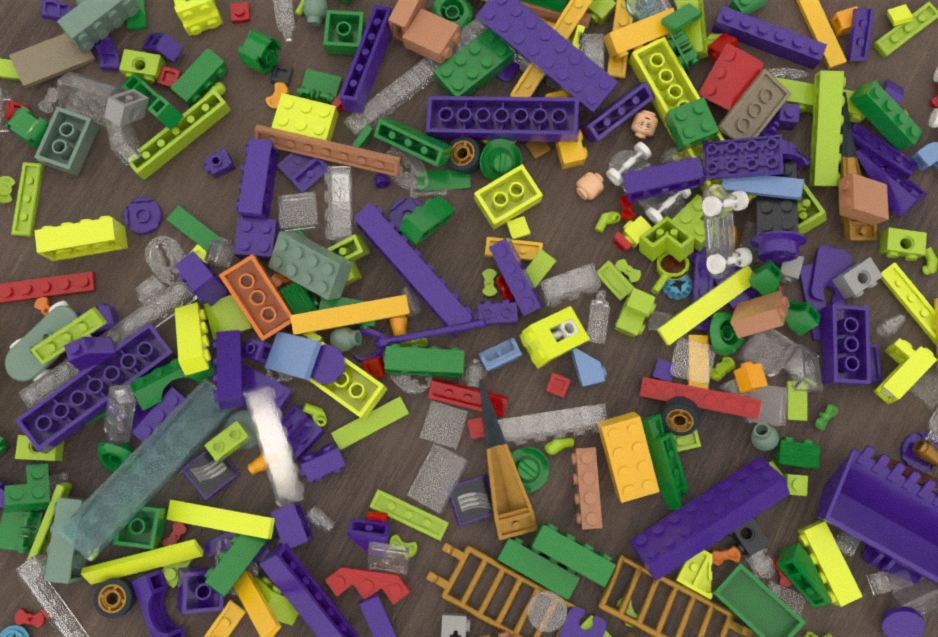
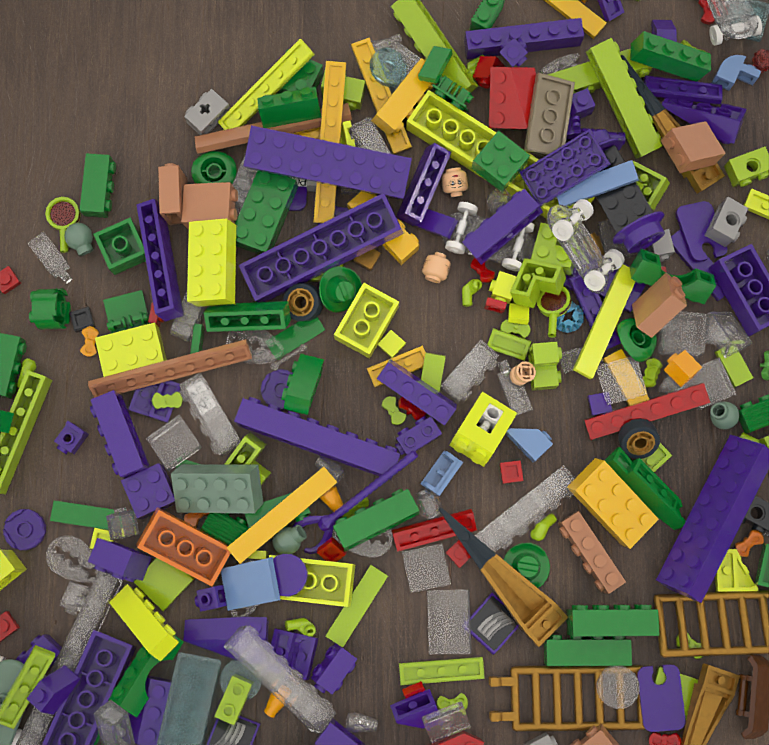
camera: 30 degrees left, 0 degrees up
(229, 369) = (196, 630): dark purple brick -> none
(310, 174) = (160, 401): none -> lime piece
(382, 181) = (237, 369): dark purple hinge -> none
(407, 81) = (211, 262): none -> neon yellow brick
(608, 310) = (518, 374): none -> light nougat wheel
(611, 150) = (438, 223): none -> dark purple tile
(636, 260) = (518, 314): none -> neon yellow tile
(754, 40) = (514, 51): none -> dark purple brick

